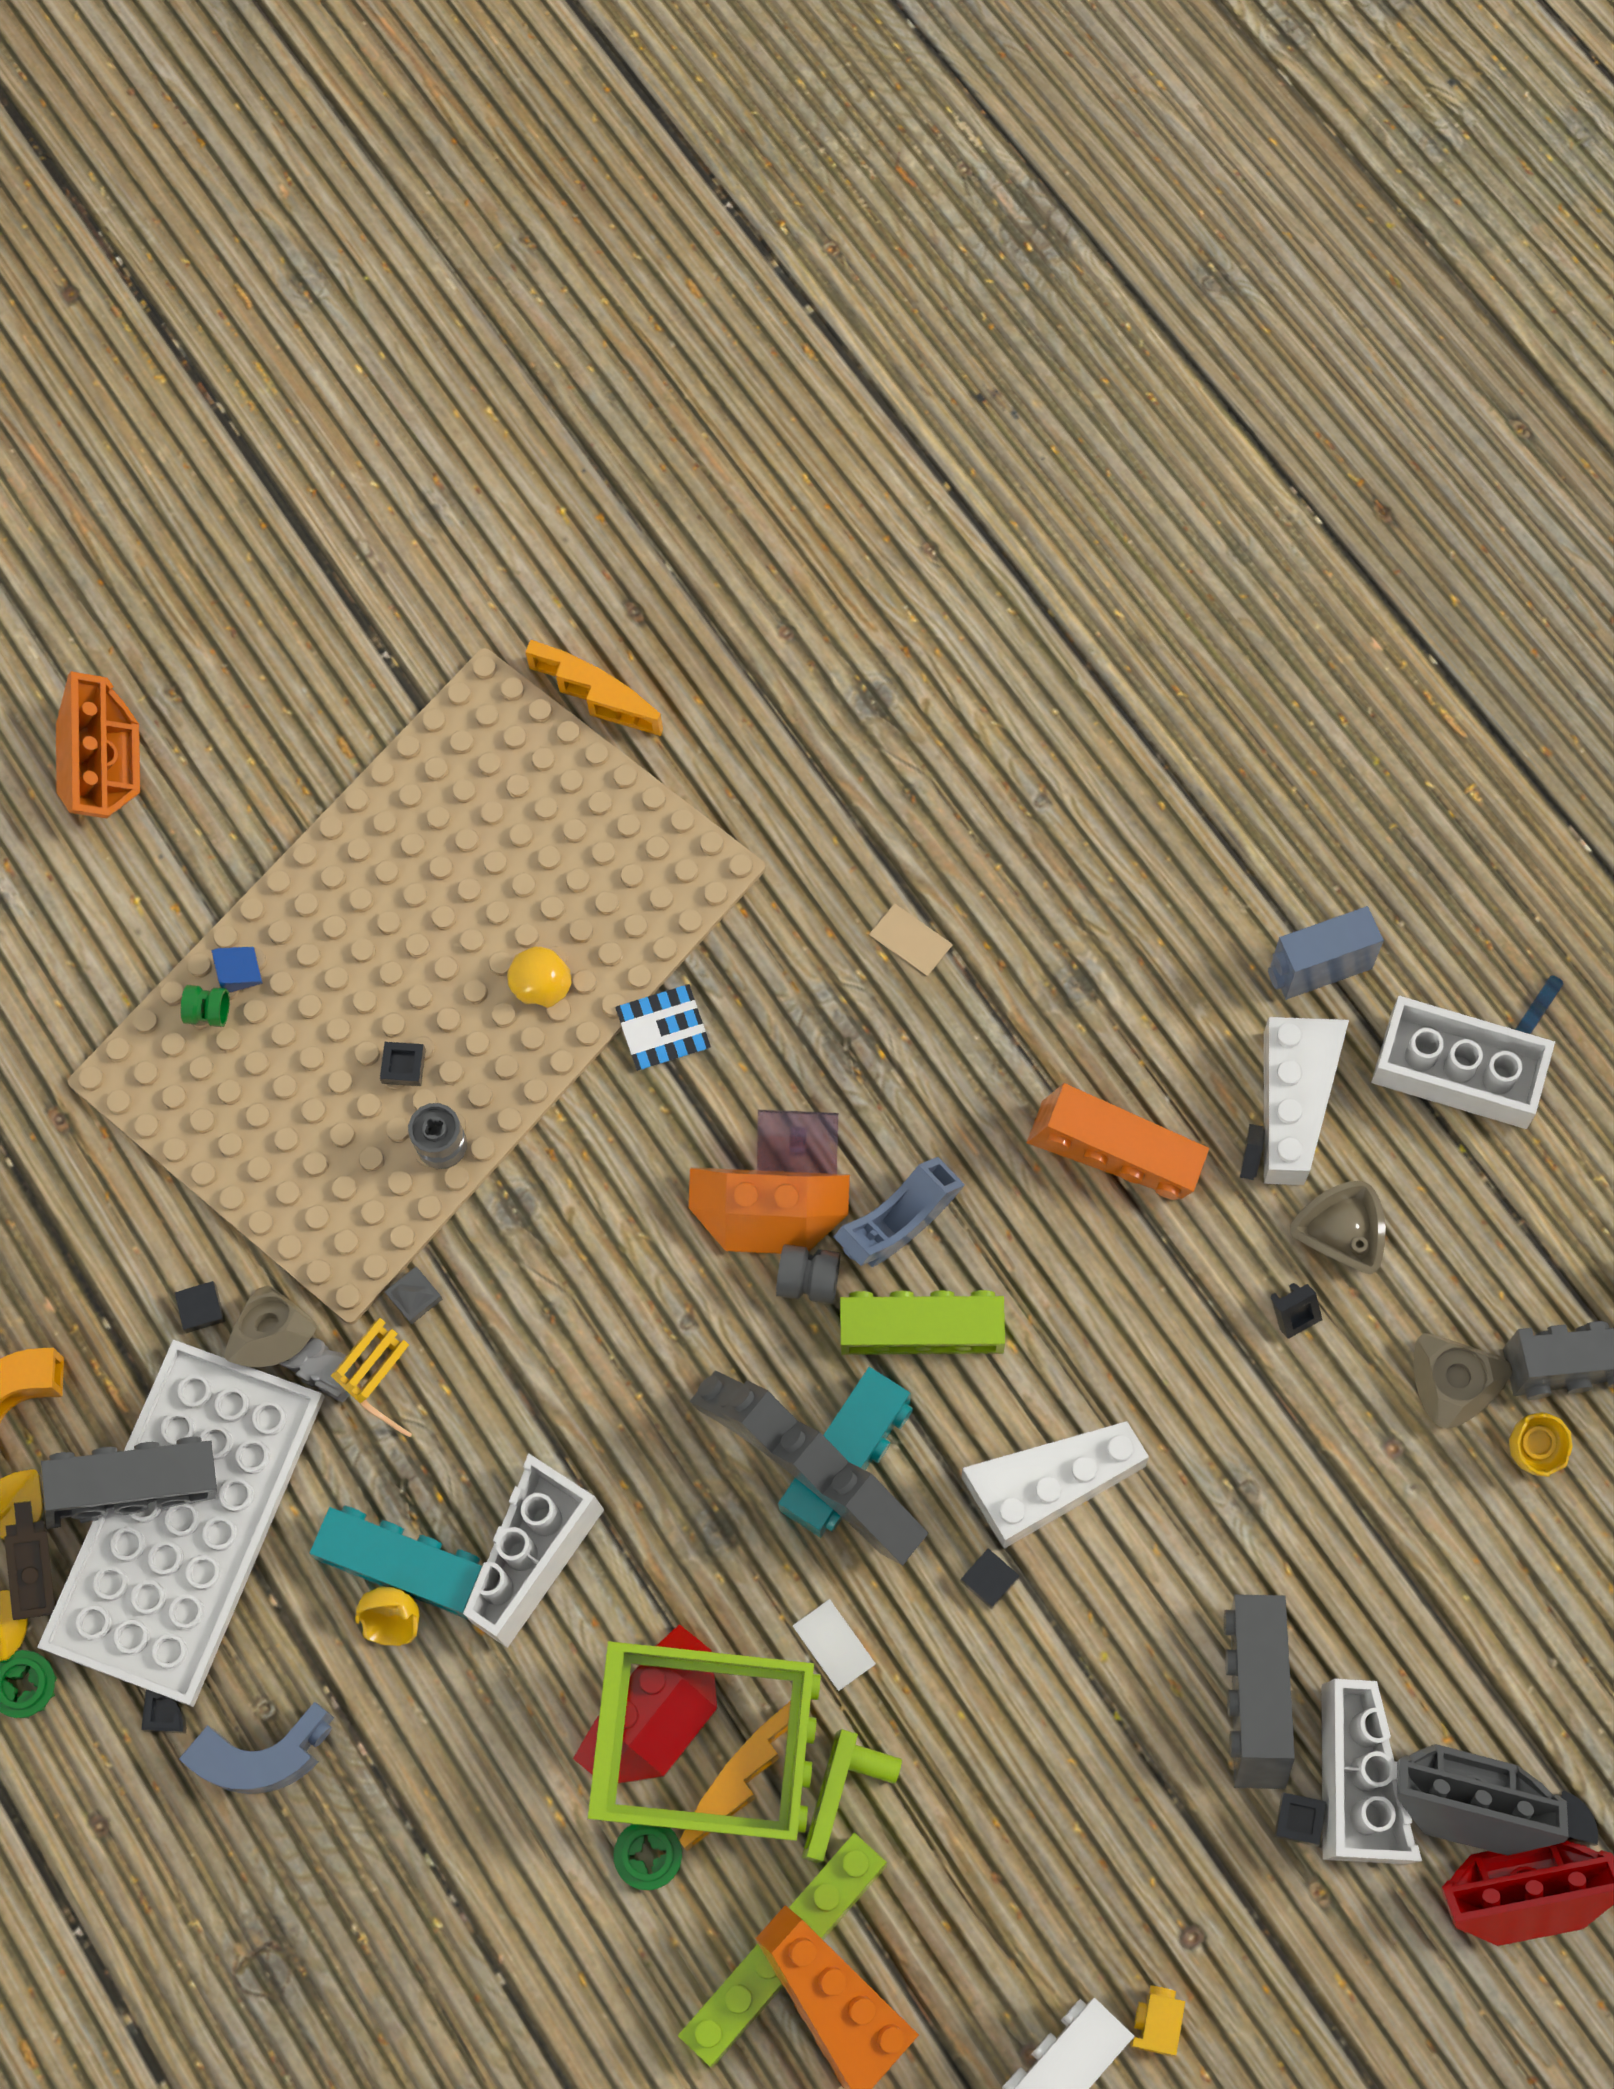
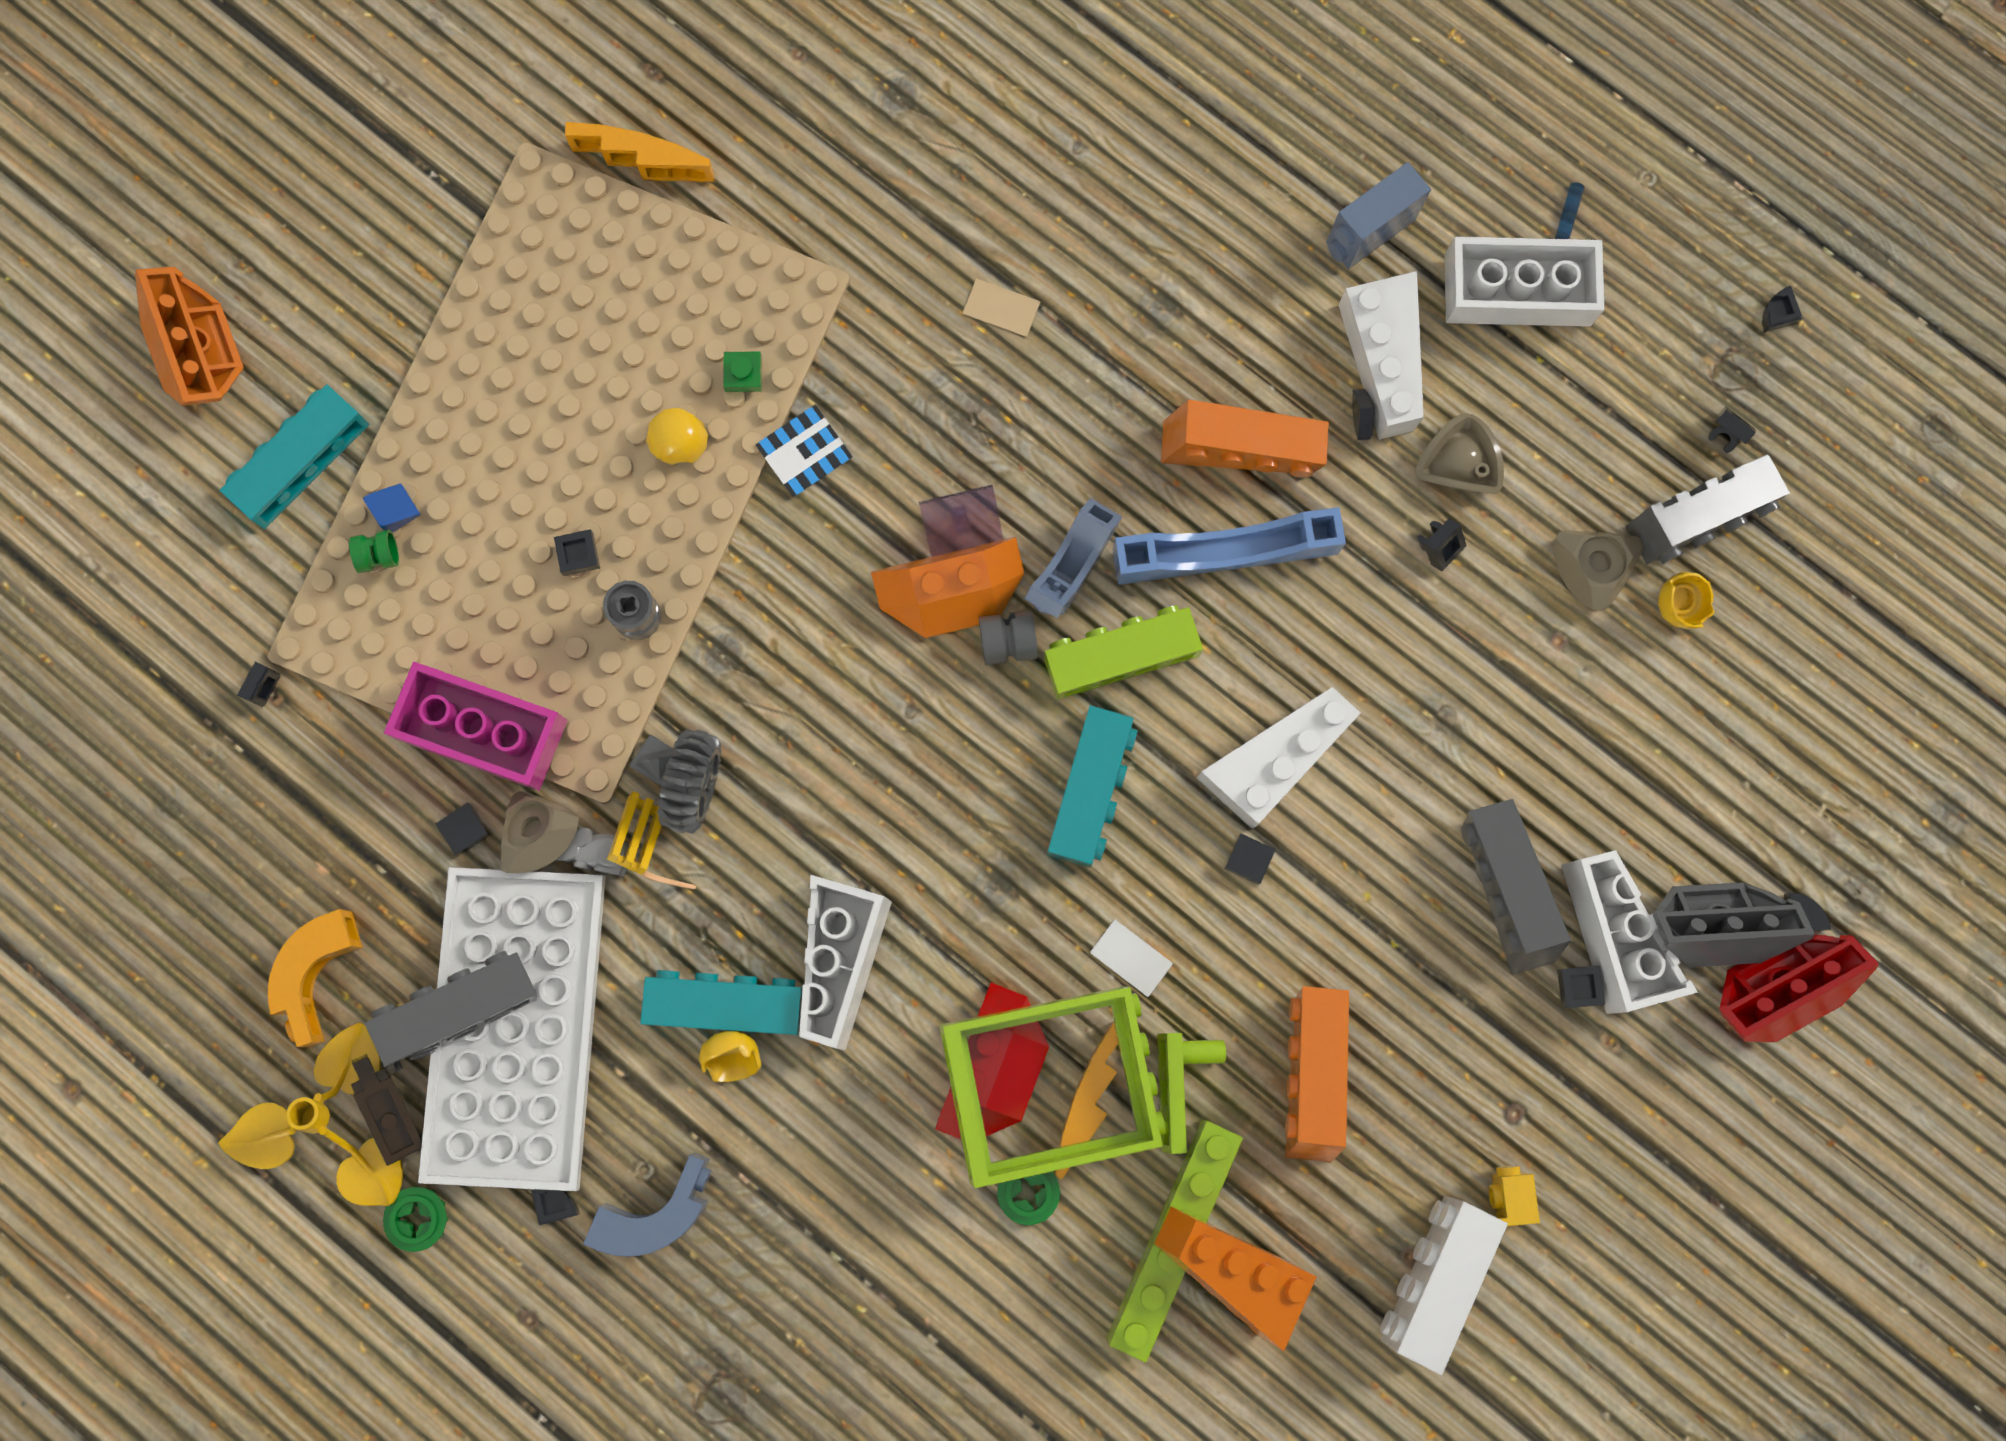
camera: 25 degrees left, 10 degrees up
(50, 1104) = (259, 684): none -> black tile
(159, 892) = (294, 456): none -> teal brick
(247, 1206) = (476, 726): none -> dark pink brick
(438, 1323) = (689, 781): none -> dark grey gear
(626, 931) = (742, 371): none -> green plate
(813, 1461) = (1064, 804): dark grey arch -> none
(988, 1824) = (1318, 1074): none -> orange wedge
(1127, 1257) = (1278, 541): none -> medium blue arch

